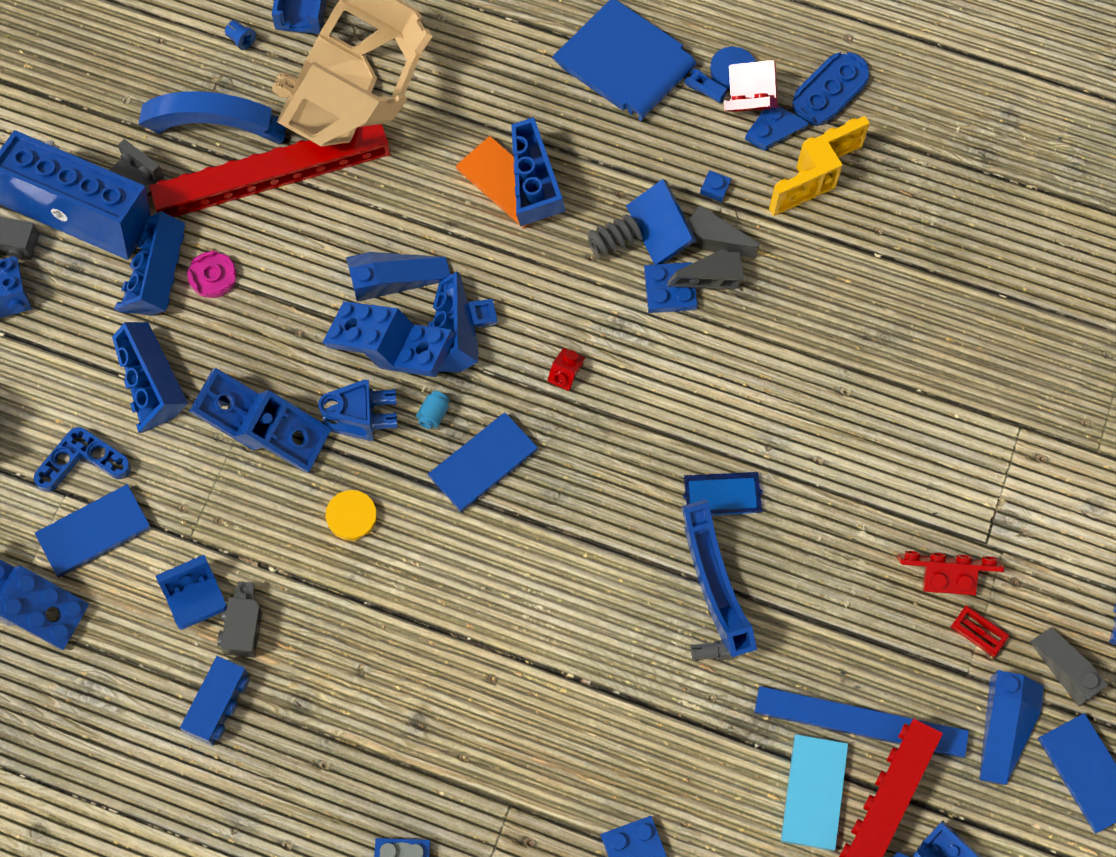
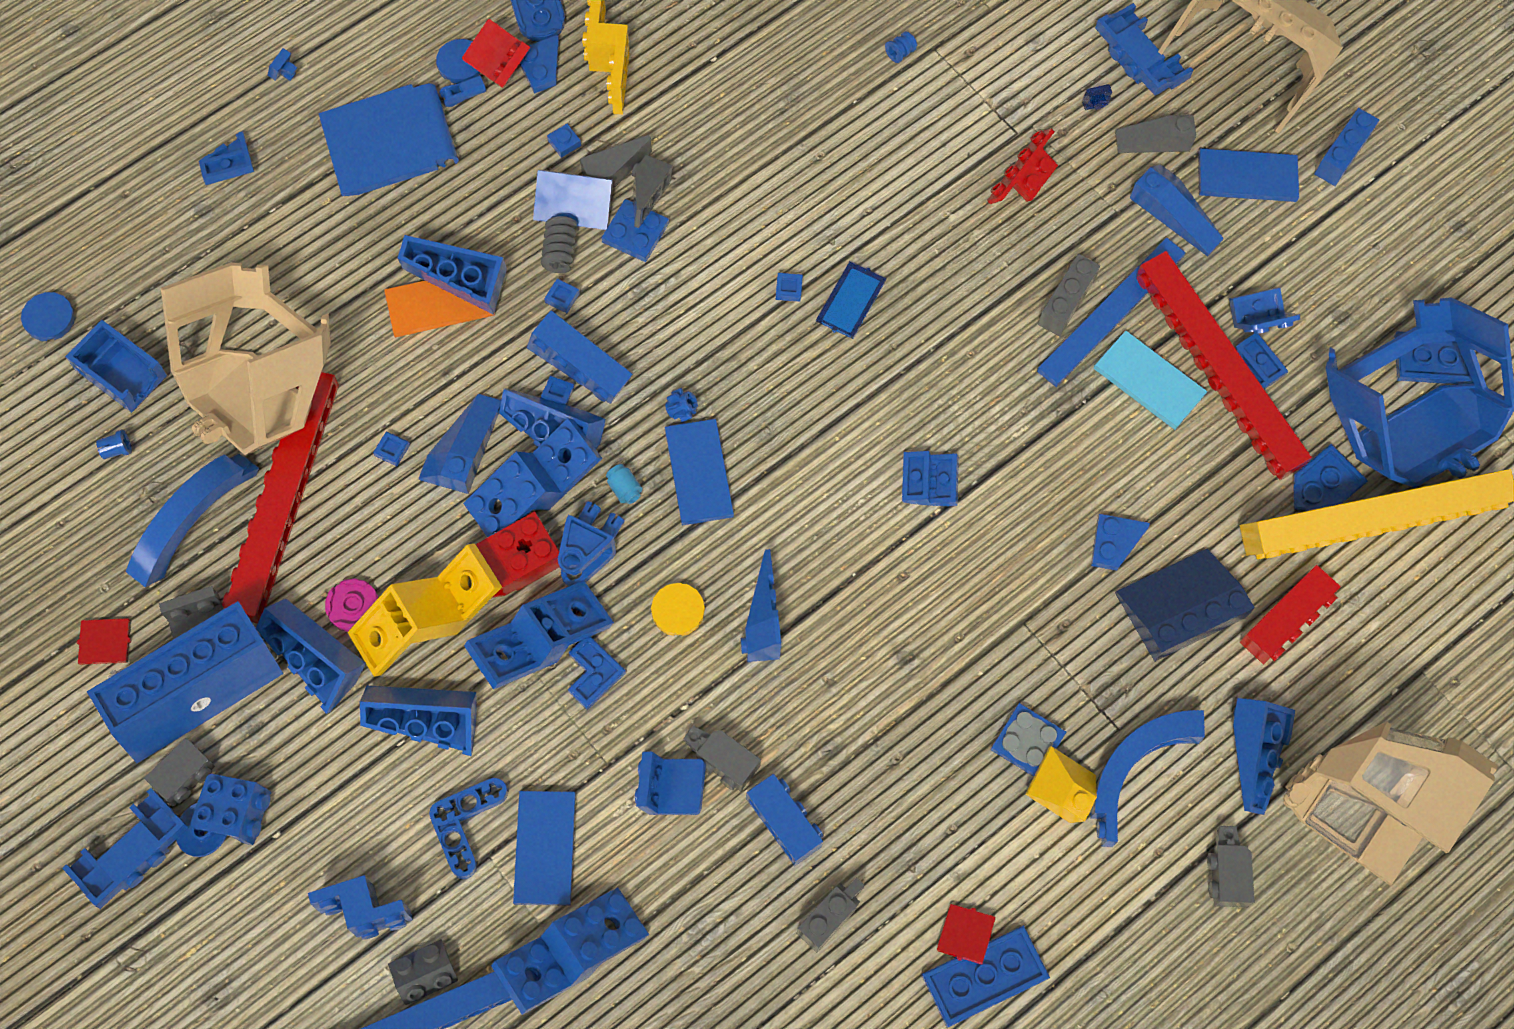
camera: 60 degrees left, 0 degrees up
(84, 125) = (104, 641): none -> red piece
(151, 783) = (830, 915): none -> dark grey hinge
(229, 324) = (424, 609): none -> yellow bracket
(264, 487) = (600, 672): none -> blue tile
(310, 360) = (508, 560): none -> red brick
(358, 223) = (391, 448): none -> blue tile
(375, 587) = (762, 629): none -> blue wedge
(519, 310) = (578, 358): none -> blue wedge
(530, 413) = (681, 405): none -> blue gear
(565, 368) = (657, 354): red bracket -> none
(571, 266) = (561, 296): none -> blue plate
(594, 652) = (930, 479): none -> blue slope
(697, 436) = (789, 287): none -> blue plate
(709, 651) = (987, 382): dark grey pin -> none
(717, 590) = (932, 350): blue arch -> none
(848, 673) = (1069, 295): none -> dark grey brick
(975, 639) = (1090, 182): red tile -> none
(998, 396) = (900, 47): none -> blue bush
(1069, 591) = (1097, 97): none -> clear blue plate

